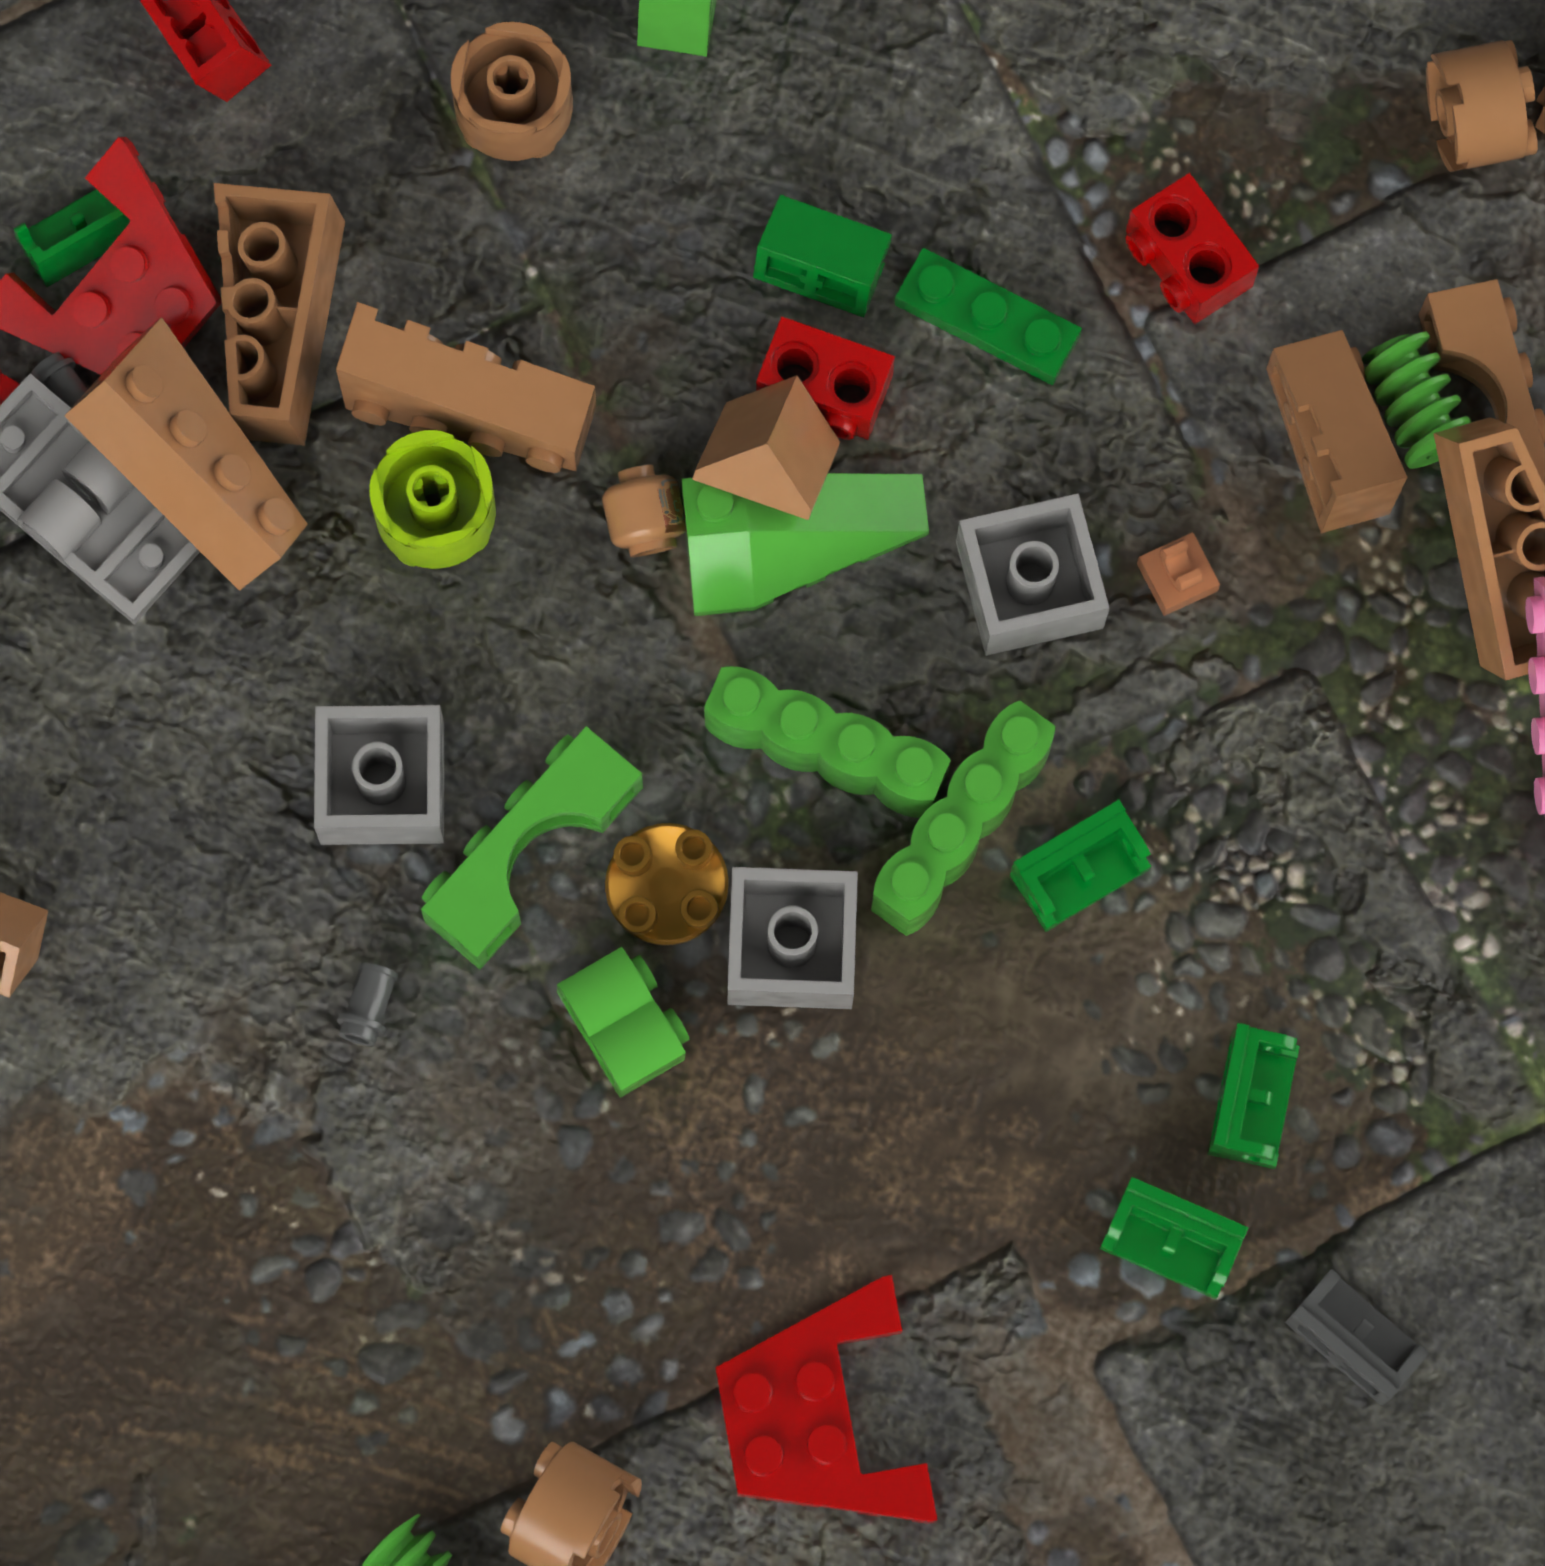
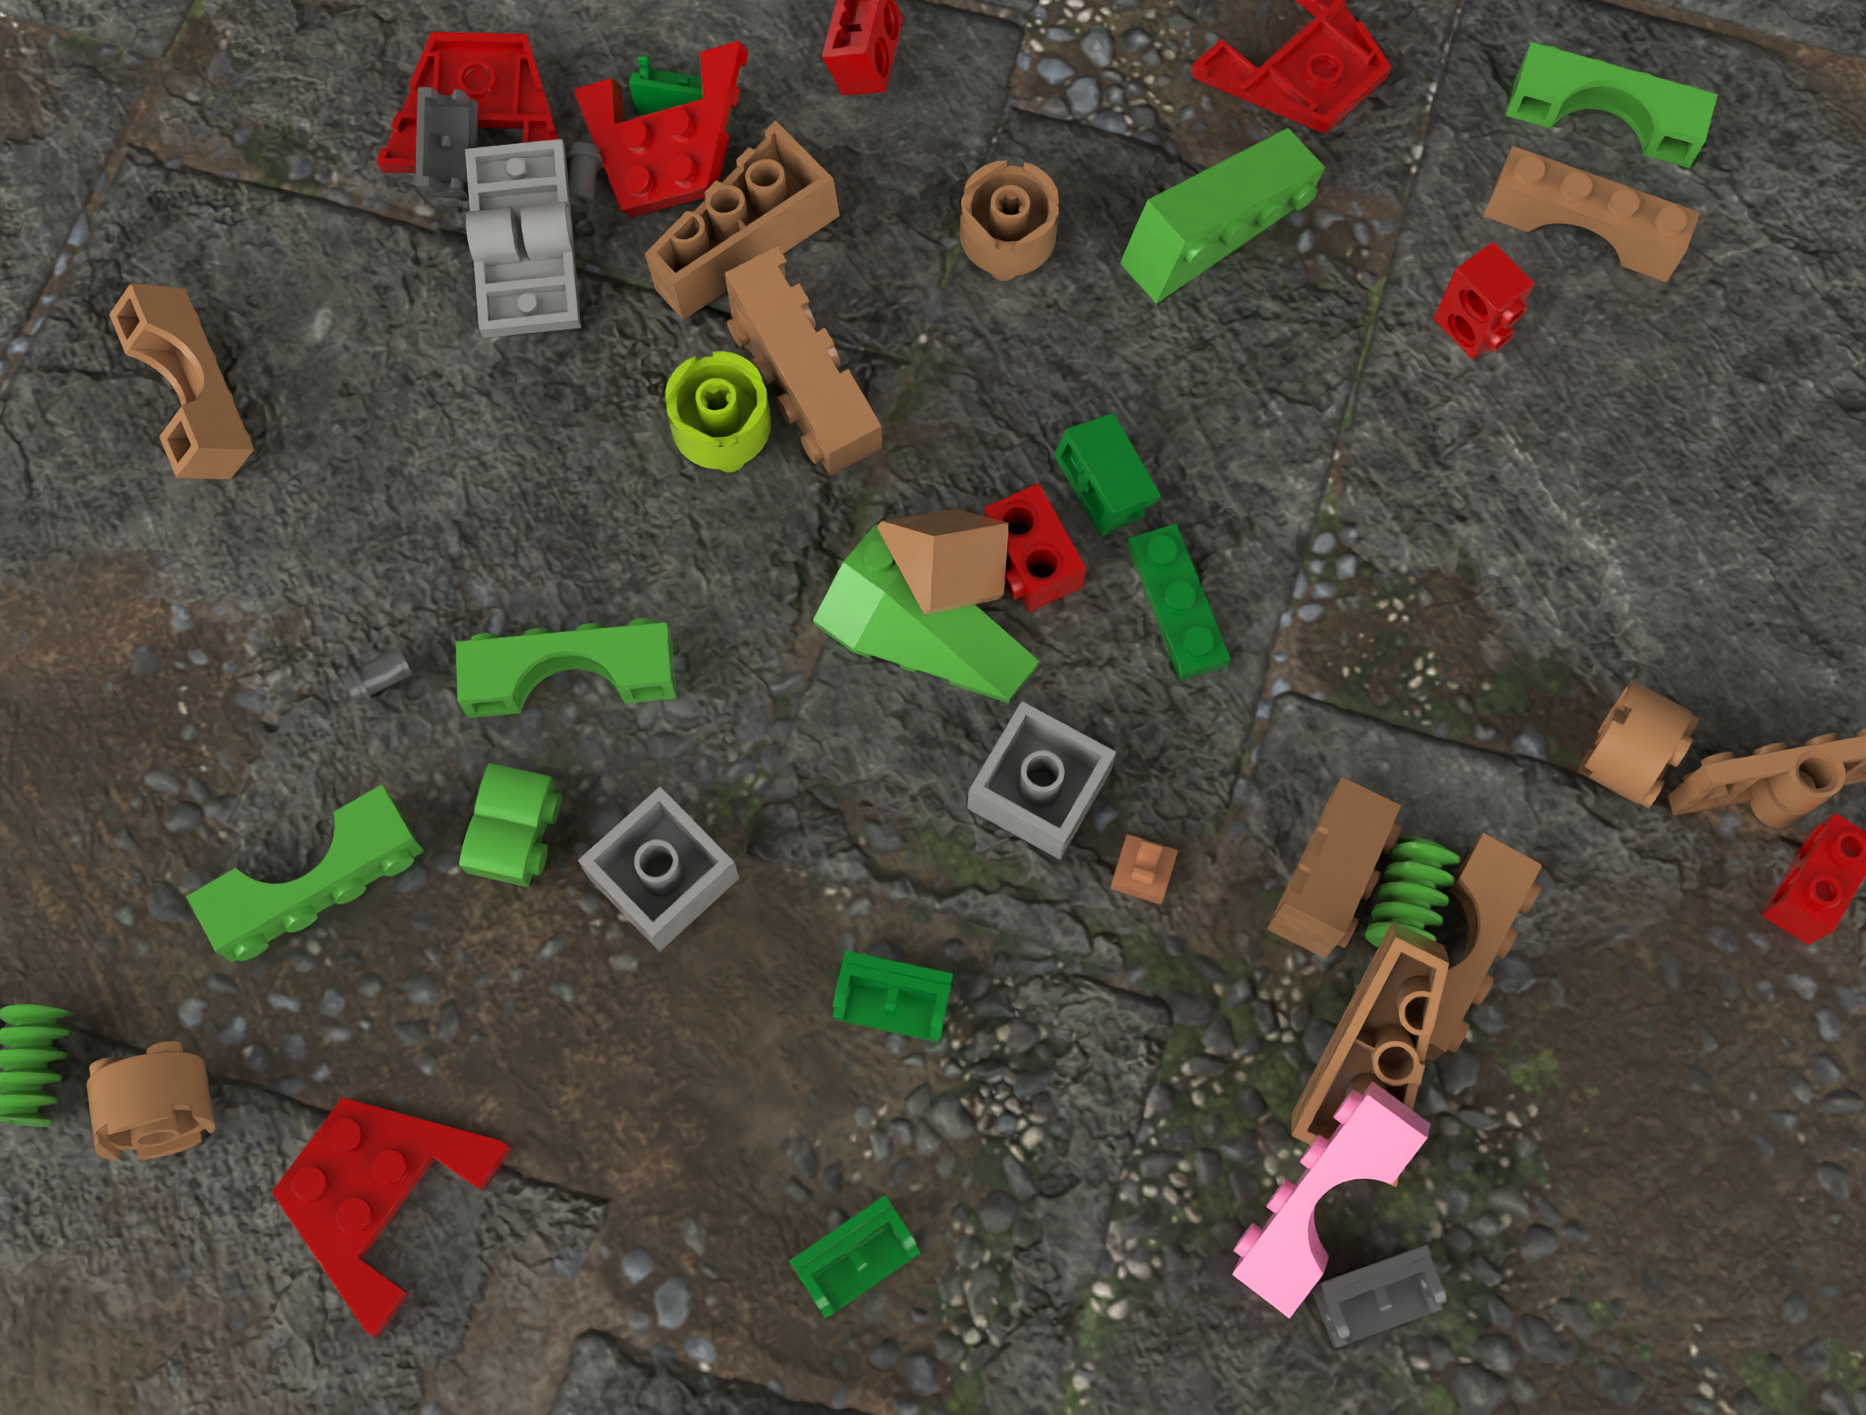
camera: 45 degrees right, 5 degrees down
(188, 456) = (595, 253): medium nougat wedge -> none
(379, 775) = (518, 541): light grey brick -> none
(474, 1299) = (366, 844): none -> bright green arch
(644, 511) = (837, 527): medium nougat head -> none
(666, 883) = (624, 765): pearl gold dish -> none
(810, 737) = (813, 775): bright green brick -> none
(951, 828) = (828, 897): bright green brick -> none
(1174, 1238) = (708, 1299): green hinge -> none
(1205, 243) = (1359, 673): red brick -> none

